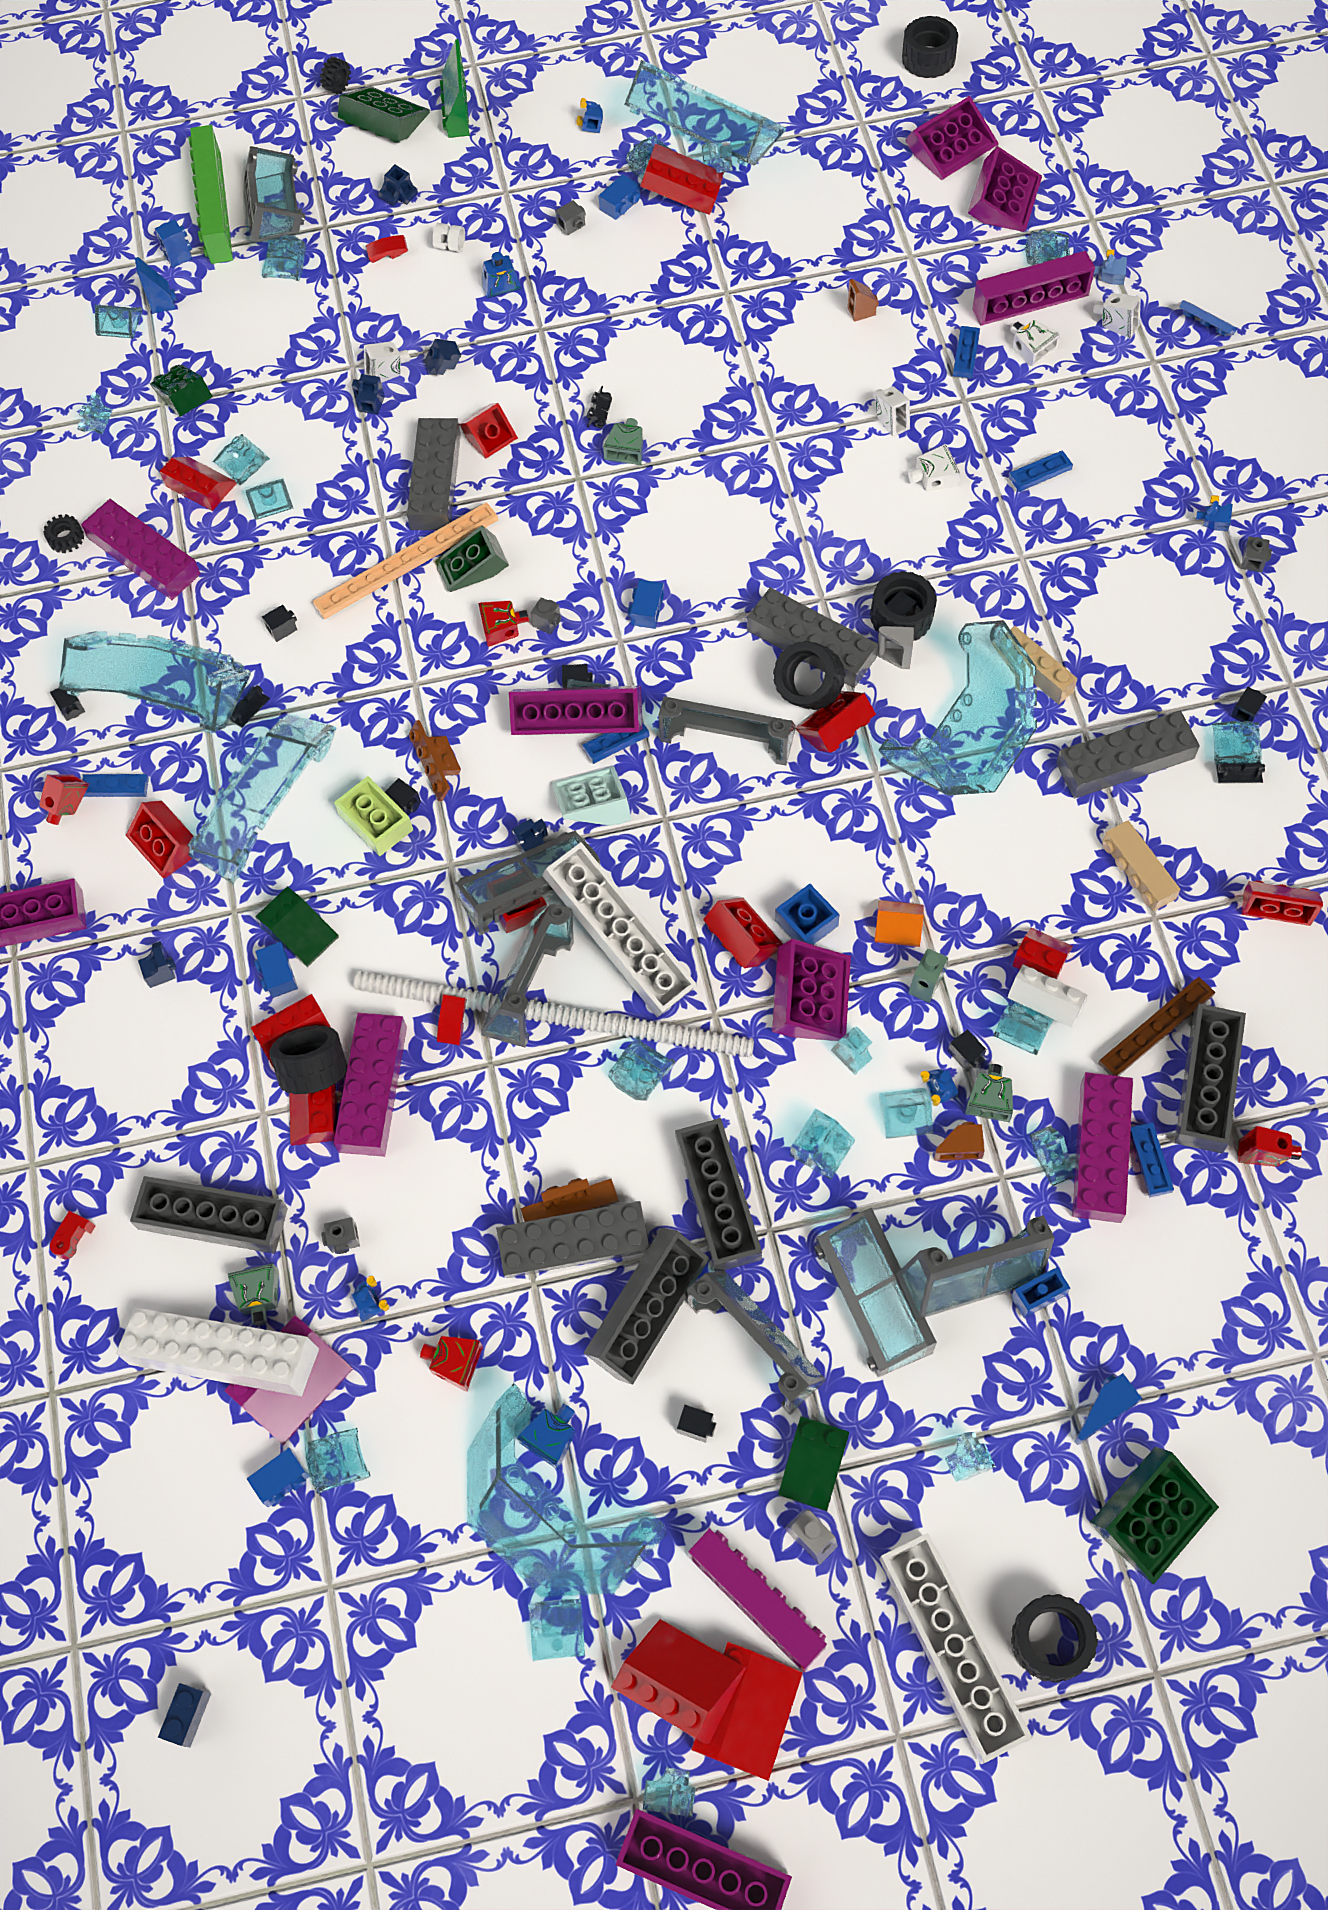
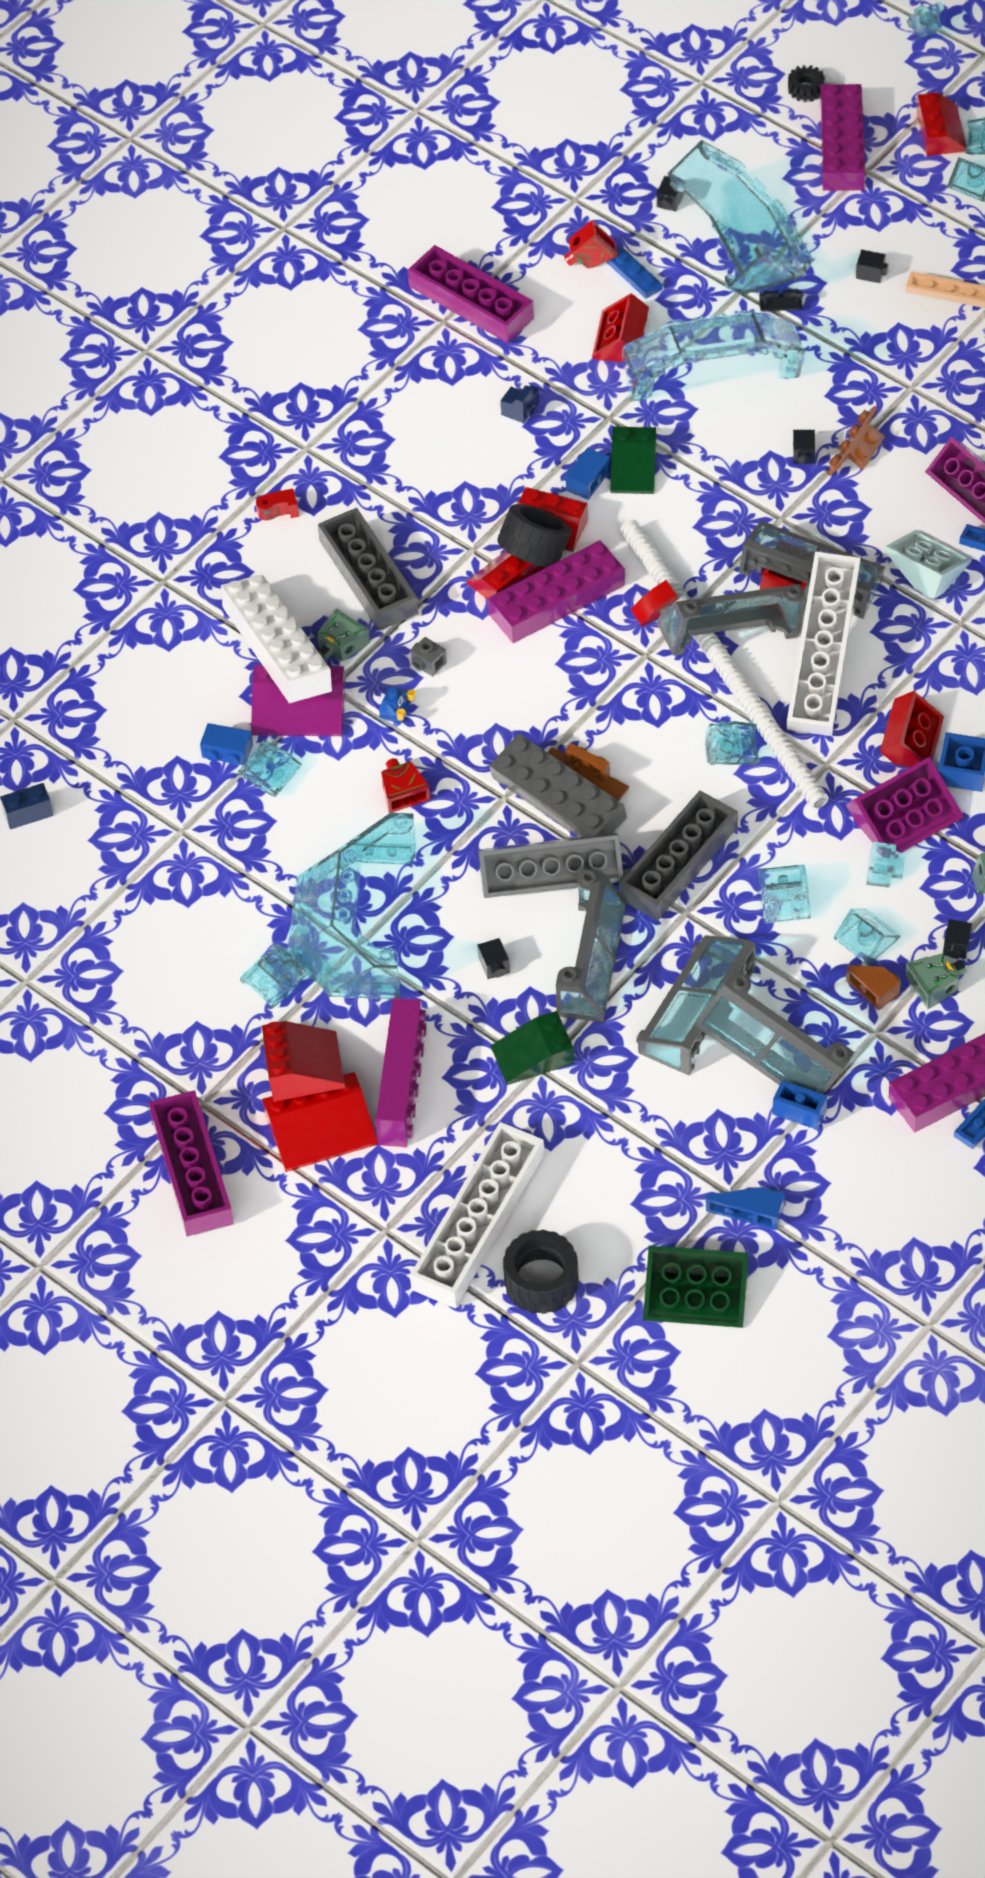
camera: 50 degrees right, 10 degrees down
(373, 816) = (768, 439): yellowish green brick -> none
(530, 834) = (852, 541): dark blue brick -> none
(549, 1435) = (402, 878): blue torso -> none
(670, 1793) = (223, 1112): clear light blue brick -> none
(812, 1535) = (479, 1072): light grey torso -> none
(940, 1085) = (910, 942): blue piece -> none
(969, 1458) = (627, 1140): clear light blue brick -> none
(1052, 1155) = (923, 1045): clear light blue slope -> none

